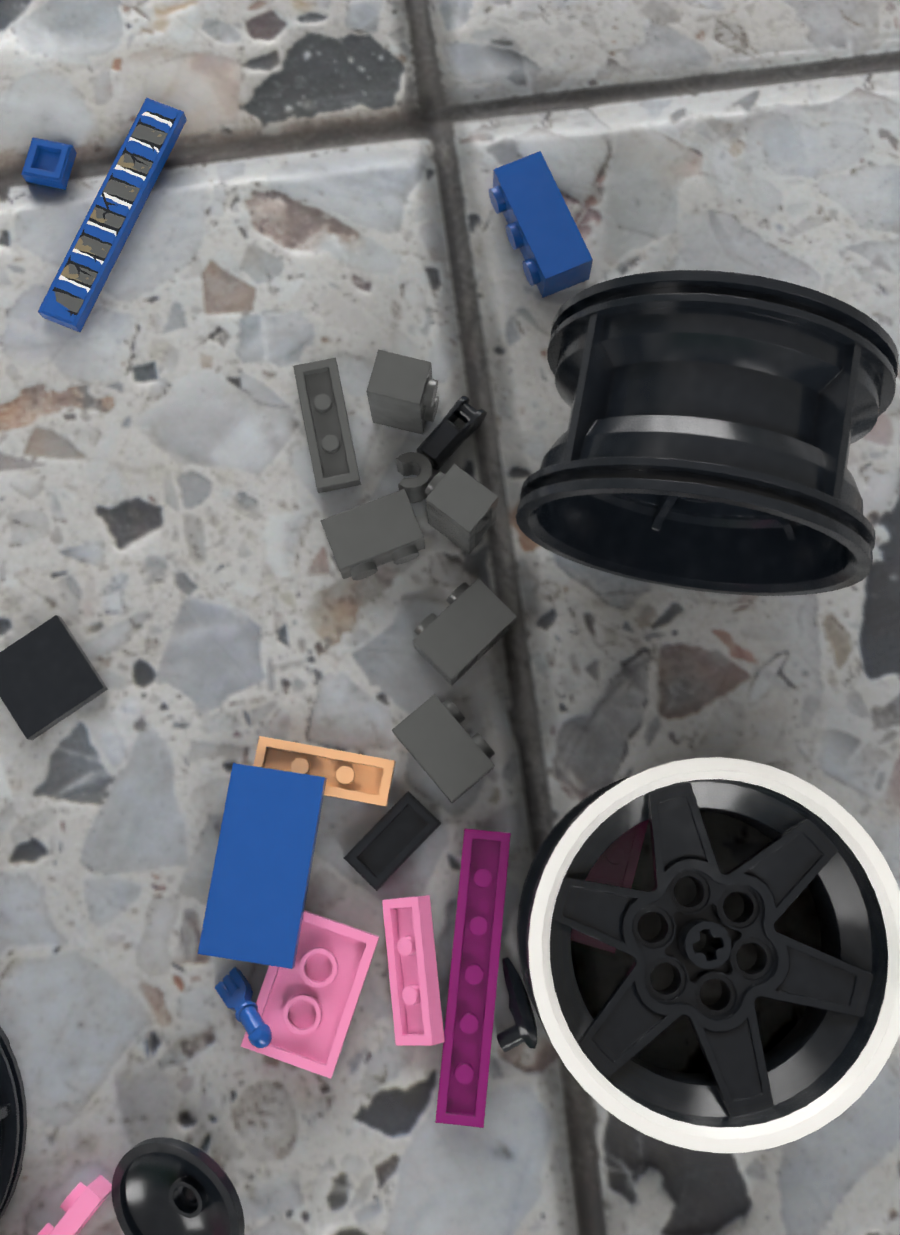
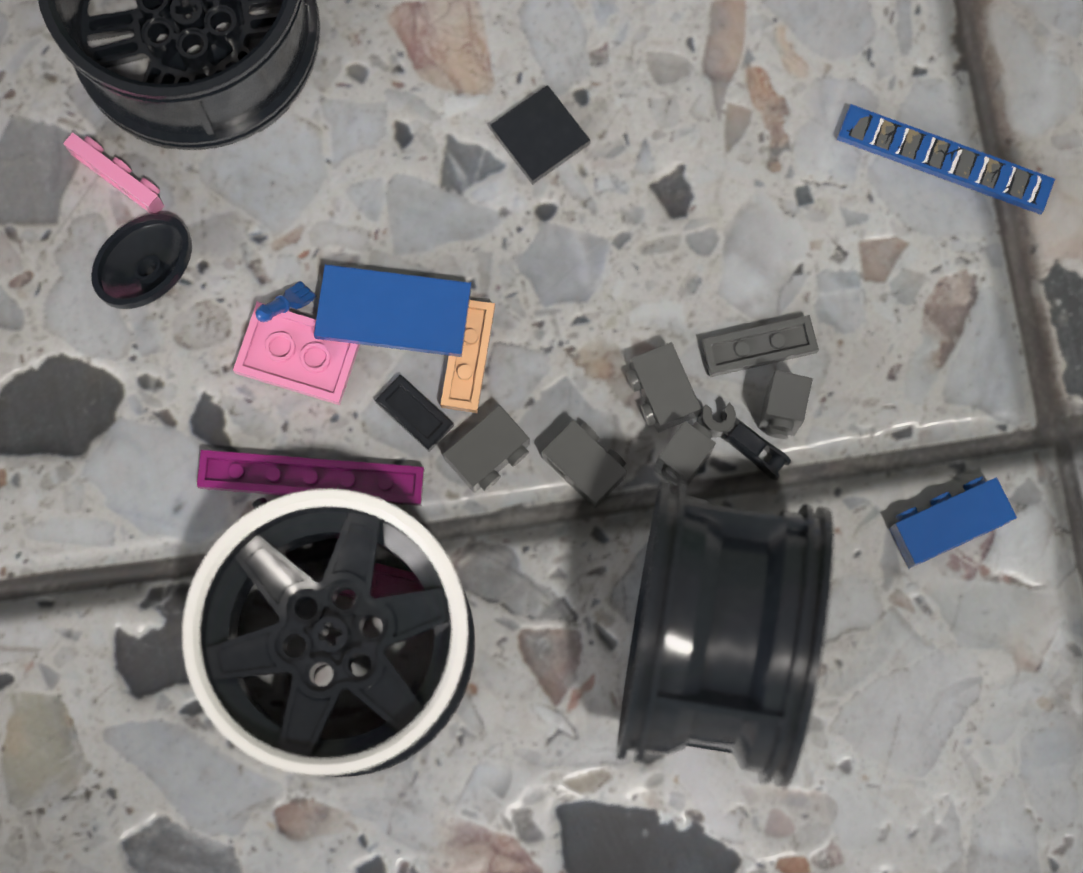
camera: 85 degrees right, 0 degrees up
(49, 163) = (989, 102): blue tile -> none
(413, 971) = (313, 430): bright pink plate -> none

